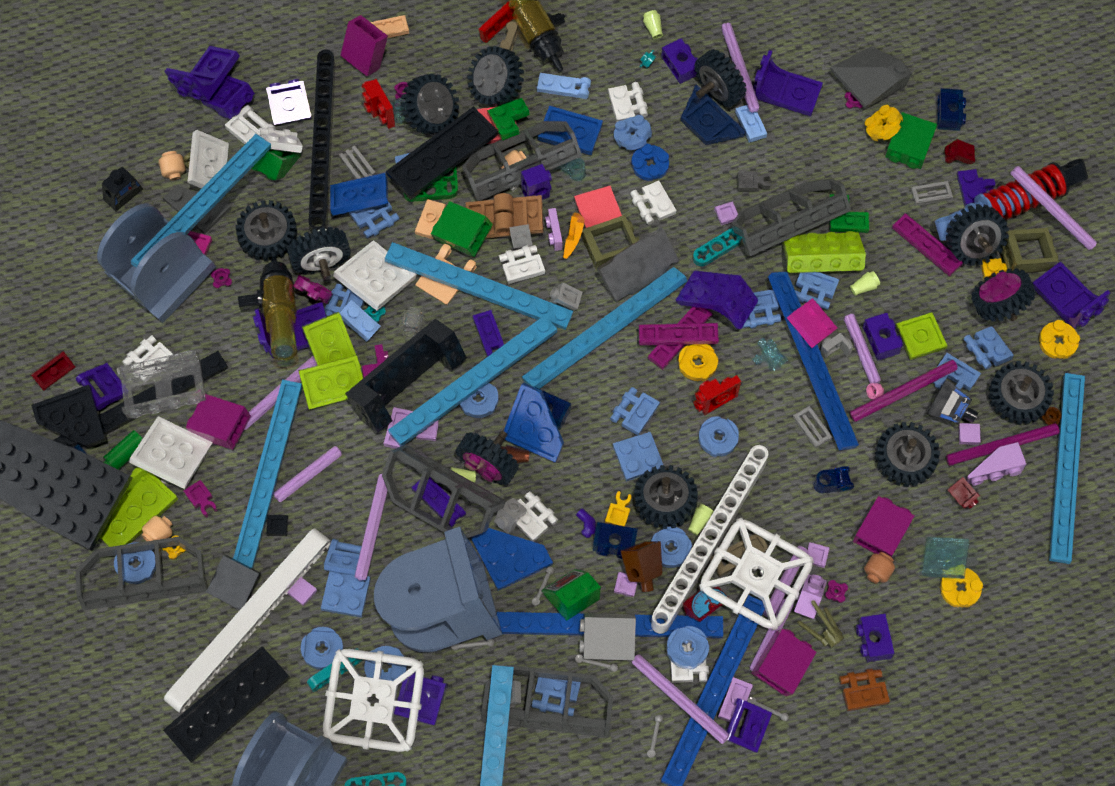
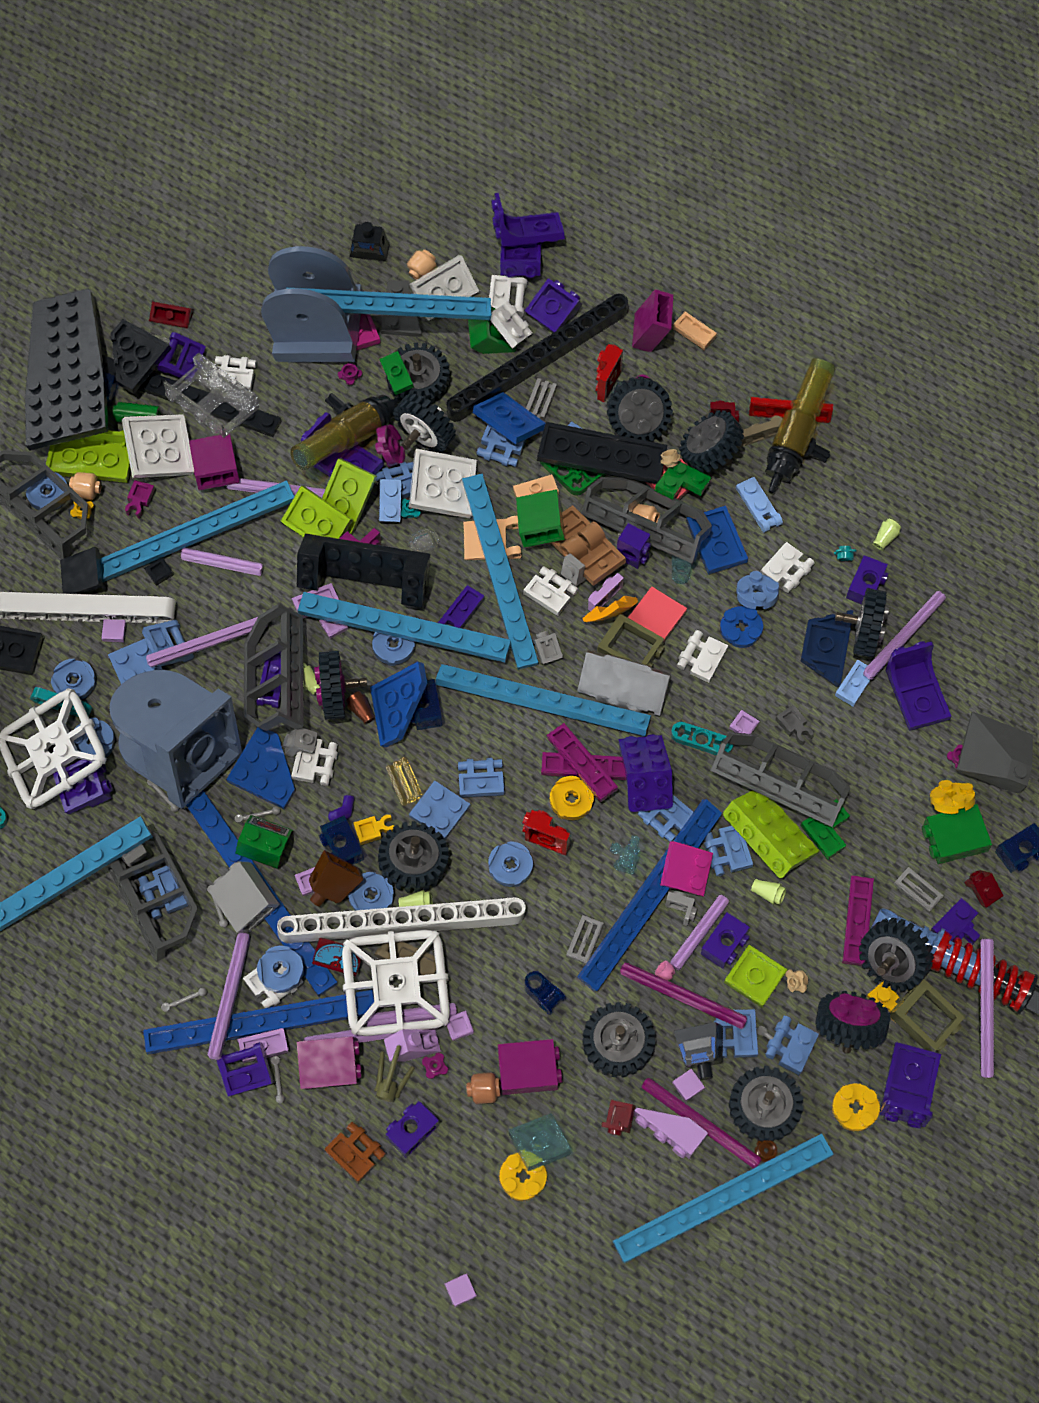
camera: 55 degrees right, 0 degrees up
(258, 241) = (396, 373): none -> green plate
(469, 54) = (724, 406): none -> dark red bracket
(487, 110) = (670, 458): none -> tan plate
(580, 461) = (397, 766): none -> clear yellow tile
(940, 309) = (797, 980): none -> tan plate
(1016, 685) = (460, 1290): none -> lavender tile

